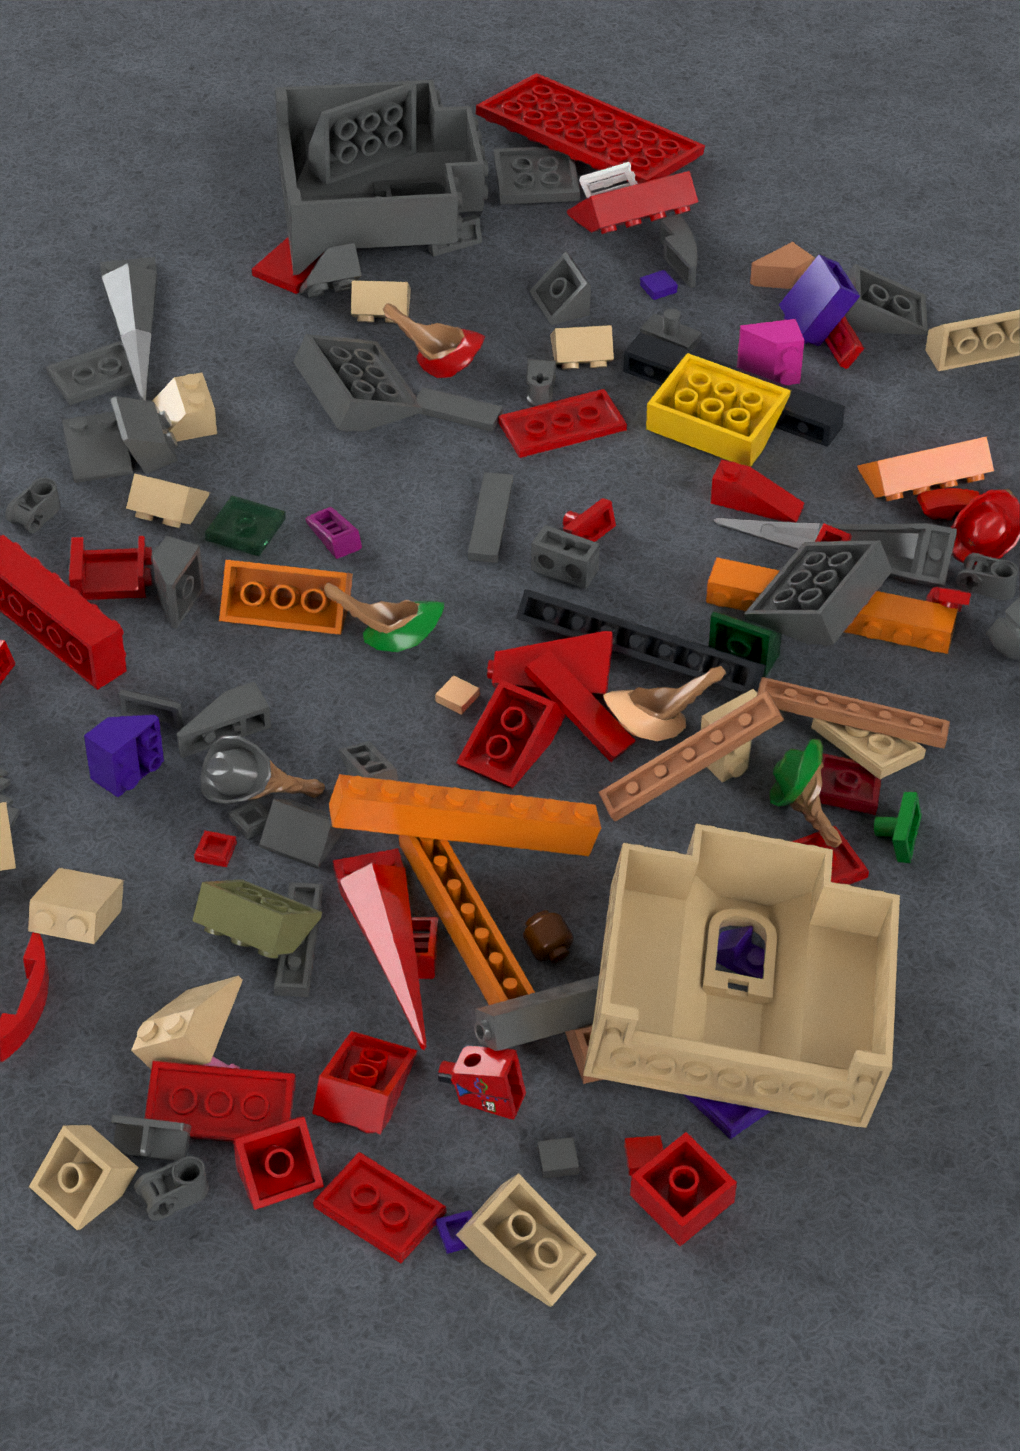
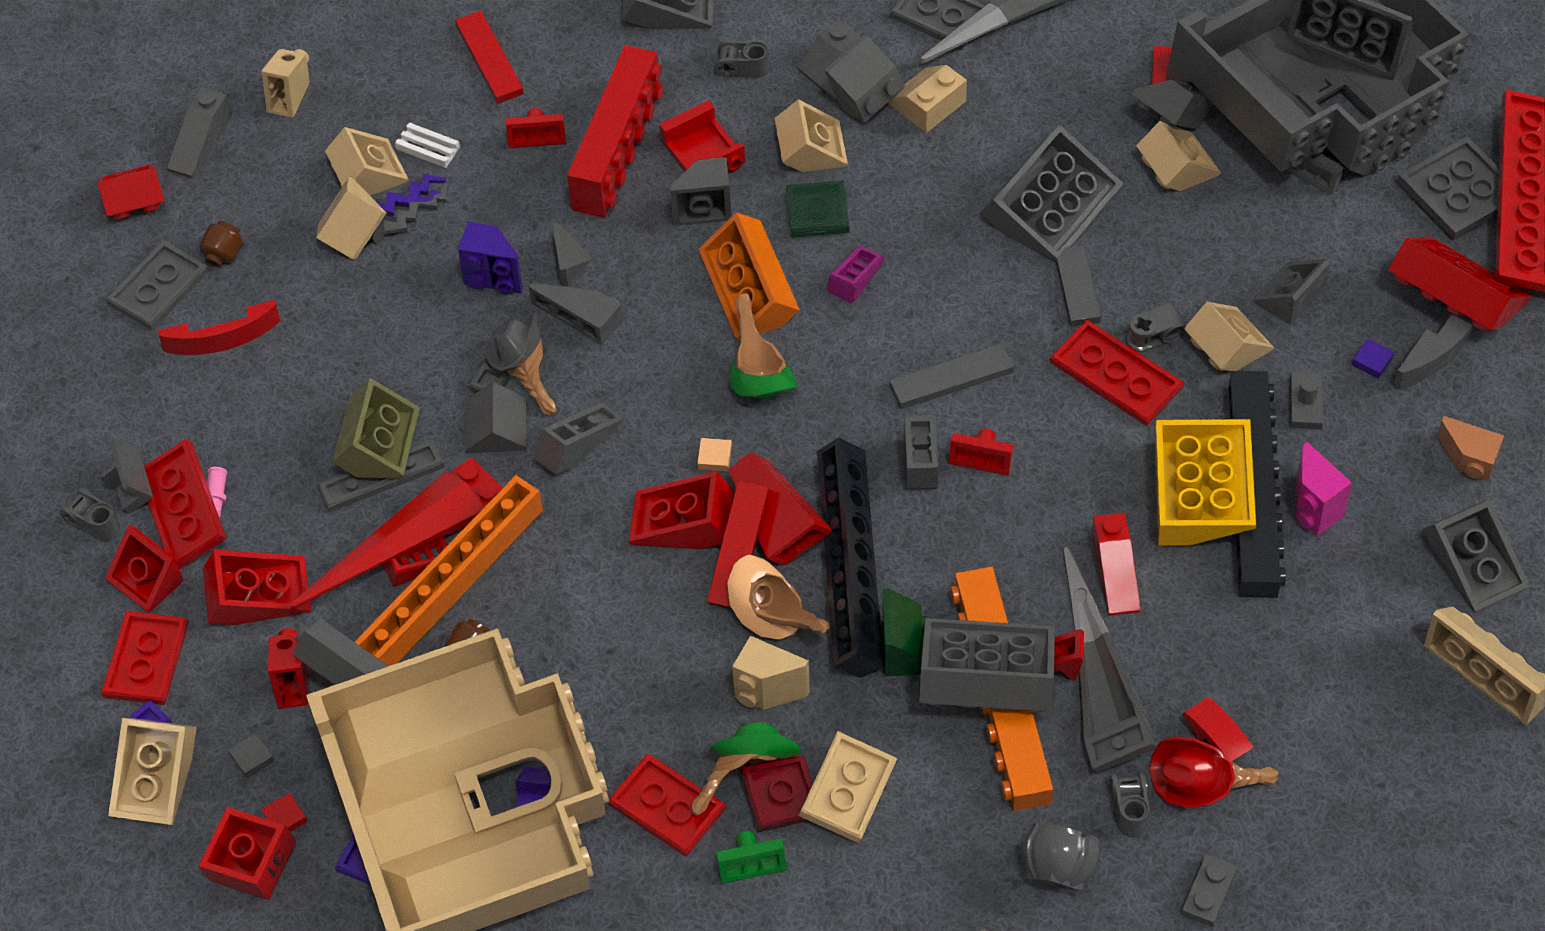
camera: 65 degrees right, 10 degrees up
(75, 905) = (315, 312): tan brick -> none
(82, 1175) = (76, 453): tan slope -> none
(188, 1025) = (235, 442): tan slope -> none
(215, 848) = (443, 374): red tile -> none
(441, 347) = (1140, 231): hat -> none
(463, 815) = (535, 518): orange brick -> none
(606, 173) = (1479, 244): white tile -> none
(691, 756) = (708, 651): nougat tile -> none
(819, 299) = (1419, 494): dark purple brick -> none
(844, 343) = (1405, 532): red tile -> none
(856, 713) = (863, 760): nougat tile -> none
(928, 467) = (1253, 689): slope -> none
(949, 597) = (1061, 776): red slope -> none

